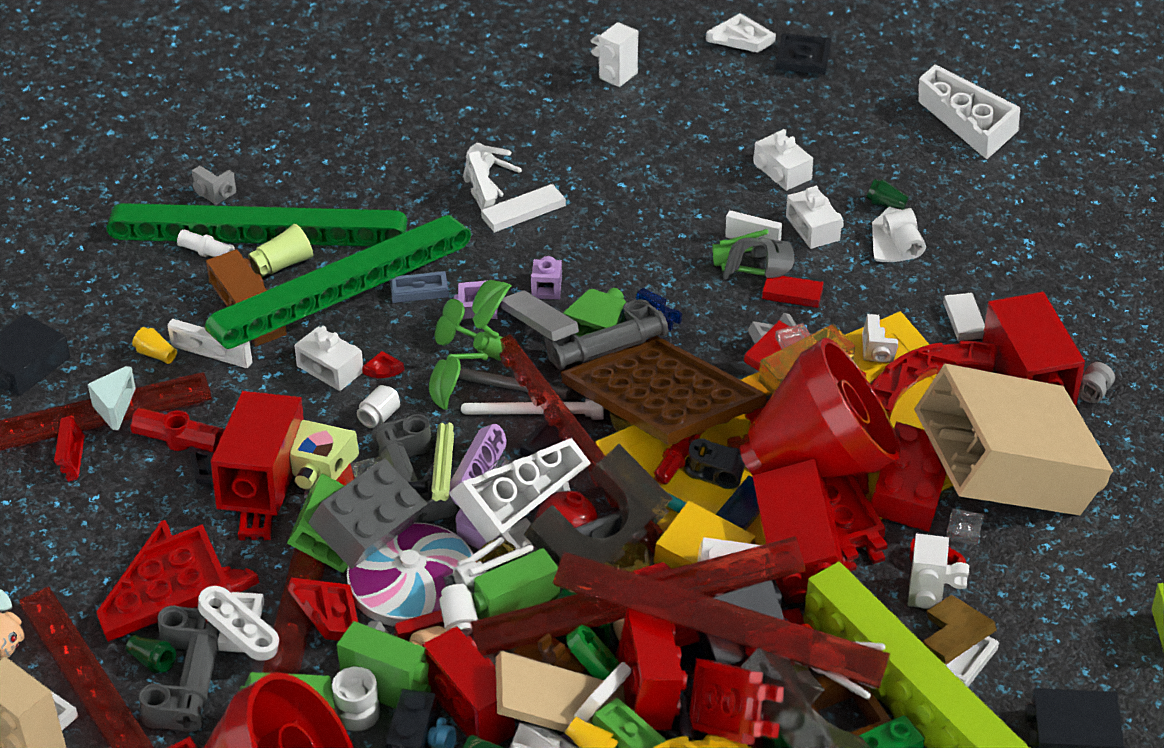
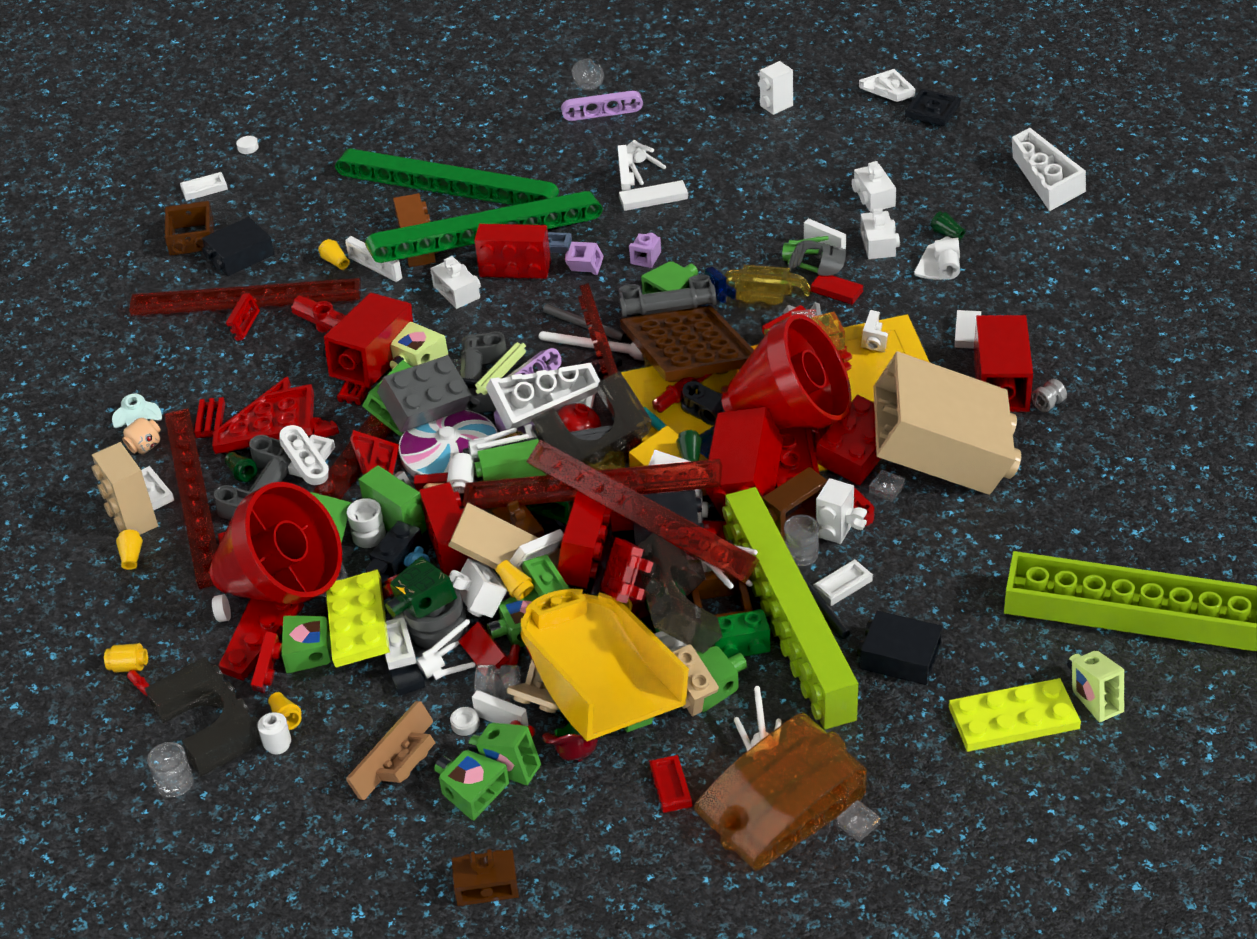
camera: 20 degrees right, 0 degrees up
(74, 575) = (220, 405): none -> red tile
(113, 395) = (286, 283): light aqua slope -> none
(204, 245) = (400, 187): white pin -> none
(212, 187) = (426, 147): light grey bracket -> none
(282, 251) = (453, 201): yellowish green plant -> none
(378, 406) = (476, 322): white brick -> none
(380, 68) = (587, 75): none -> clear hair
(383, 366) = (494, 295): red tile -> none
(390, 306) = (512, 250): none -> red brick
(412, 101) = (601, 102): none -> lavender beam
(487, 343) = (572, 288): bright green plant -> none
(539, 315) = (623, 275): light grey tile -> none
(592, 652) = (544, 517): green beam -> none
(709, 298) = (765, 283): none -> clear yellow plate
(731, 523) = (689, 445): none -> dark green cone
(886, 564) = (801, 488): none -> reddish brown window
(907, 605) = (802, 538): none -> clear wheel
(926, 362) = (948, 356): red tile -> none
(960, 629) = (845, 558): pearl gold tile -> none

